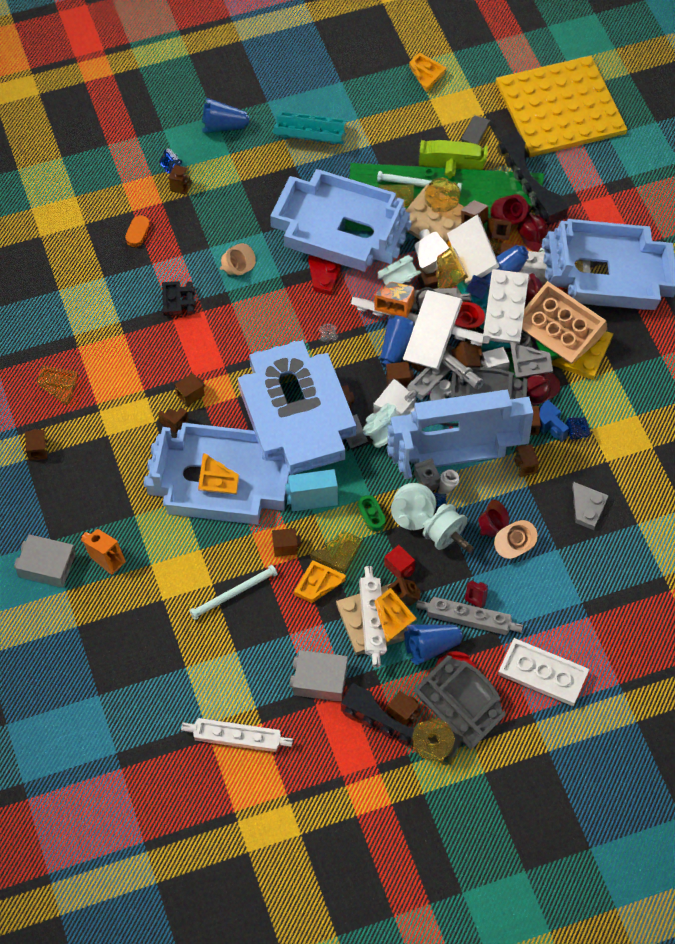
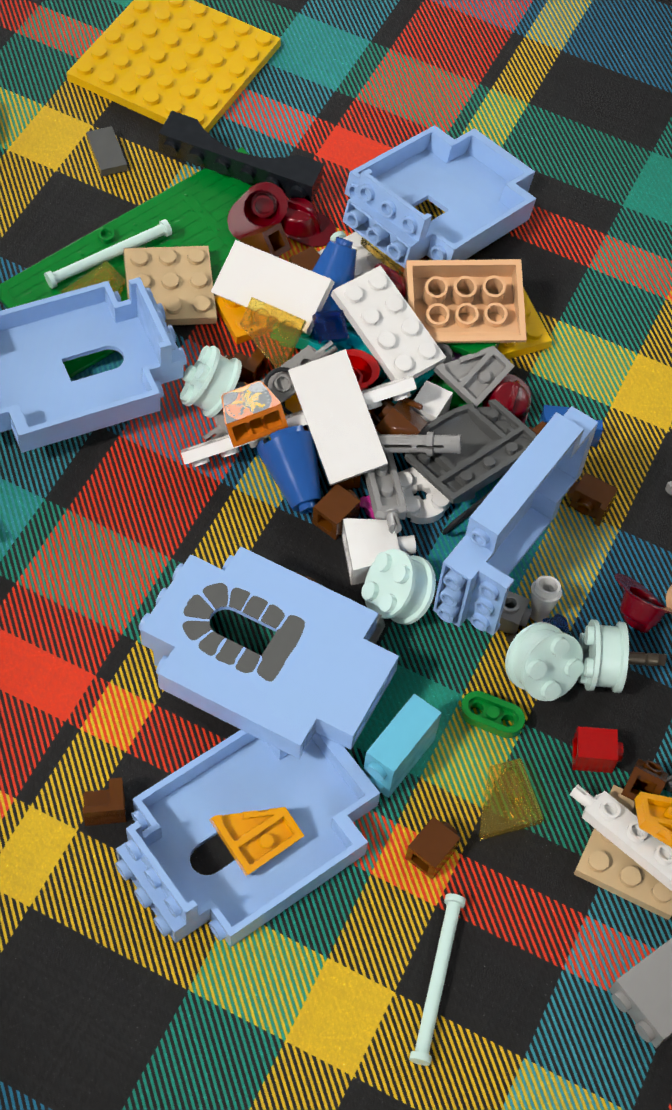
camera: 50 degrees left, 0 degrees up
(99, 545) = (220, 1086): orange torso -> none
(190, 389) = (87, 744): reddish brown brick -> none
(318, 581) = (526, 864): light orange wing -> none
(323, 274) = (102, 454): red wing -> none
(328, 328) = (186, 517): clear plate -> none
(428, 249) = (216, 323): white torso -> none
(438, 203) = (157, 260): clear yellow plate -> none
(452, 155) = (115, 195): lime piece -> none
(473, 209) = (218, 244): reddish brown brick -> none
(578, 428) = (608, 411): clear blue tile -> none

